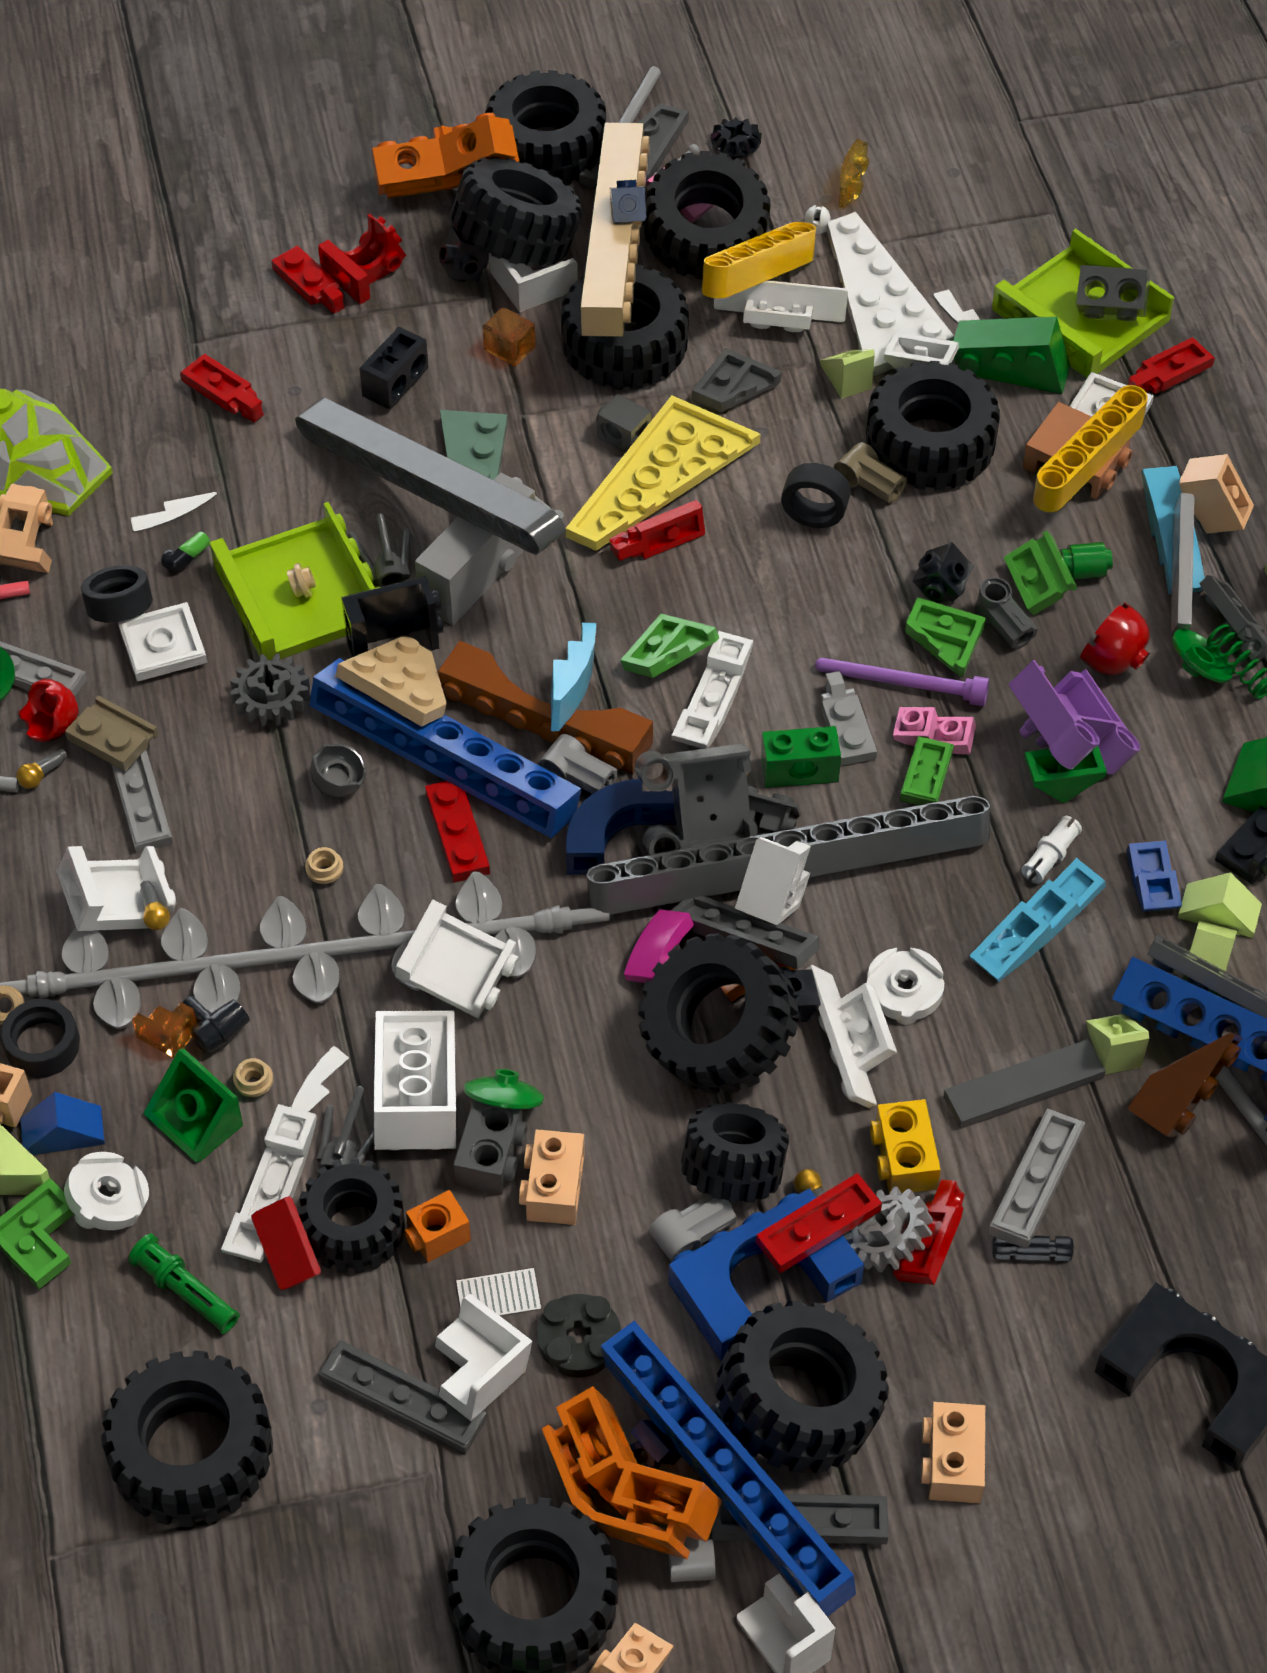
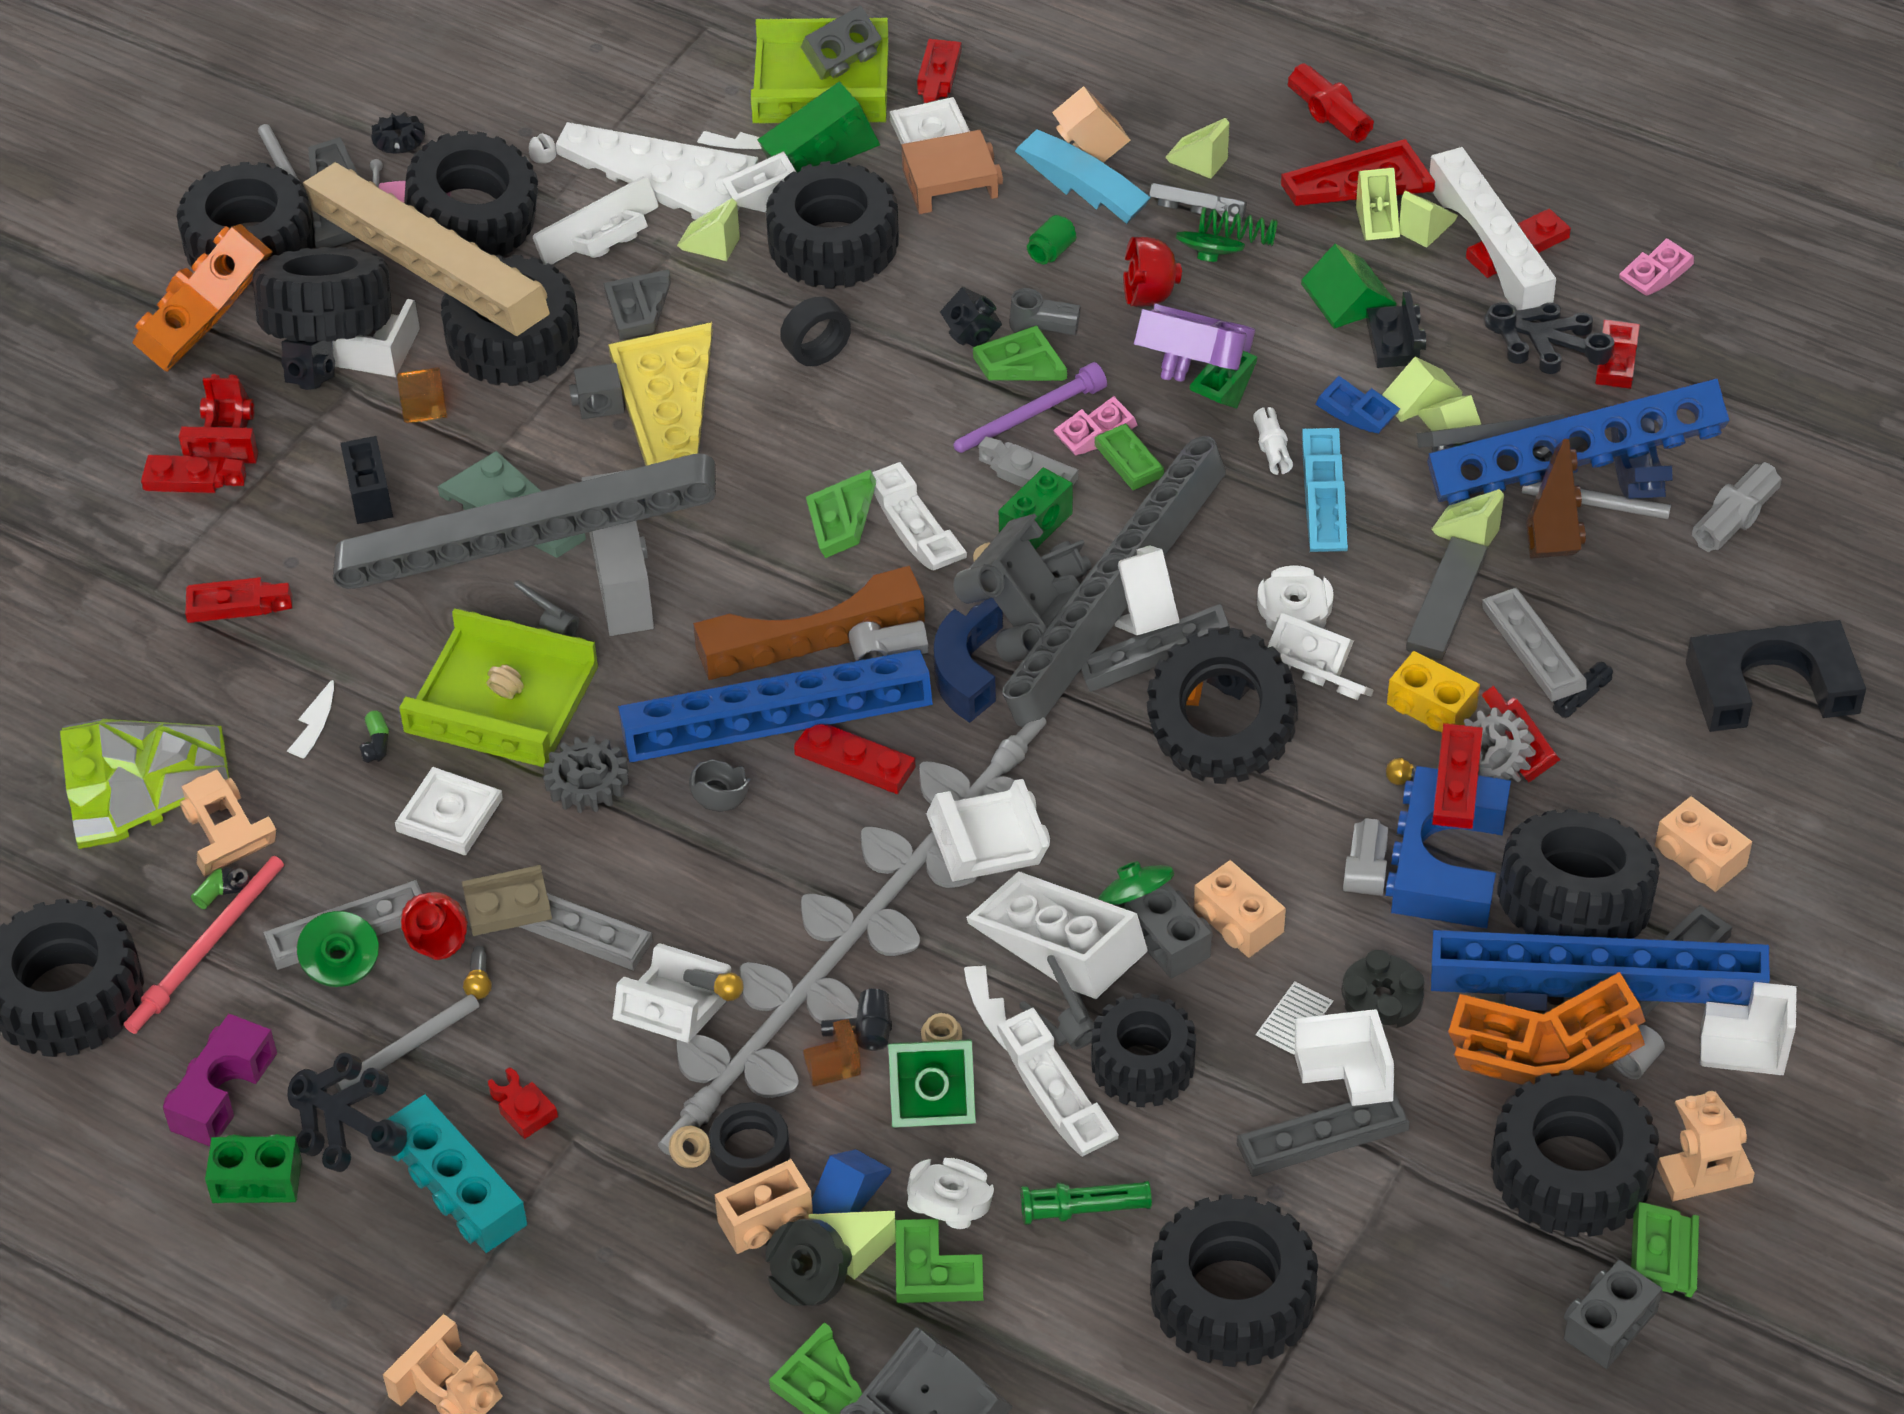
camera: 45 degrees left, 5 degrees down
(116, 593) = (378, 817): black tyre -> none
(285, 1243) = (1127, 1103): red slope -> none
(324, 858) = (794, 849): tan plate -> none
(391, 613) = (630, 625): black panel -> none
(400, 677) = (685, 682): tan plate -> none
(441, 1211) = (1207, 1004): orange brick -> none
(572, 677) = (814, 578): medium azure slope -> none
(628, 201) = (430, 210): dark blue bracket -> none
(656, 940) = (1106, 709): dark pink slope -> none
(660, 532) = (732, 439): red hinge -> none
(734, 1152) = (1342, 784): black tyre -> none
(758, 259) = (556, 199): yellow beam -> none
(851, 174) = (530, 97): clear yellow slope -> none
(863, 467) = (840, 289): dark tan piece -> none
(1040, 573) = (1034, 266): bright green plate -> none
(1090, 448) = (974, 155): yellow beam -> none
(1182, 563) = (1127, 189): light grey tile -> none

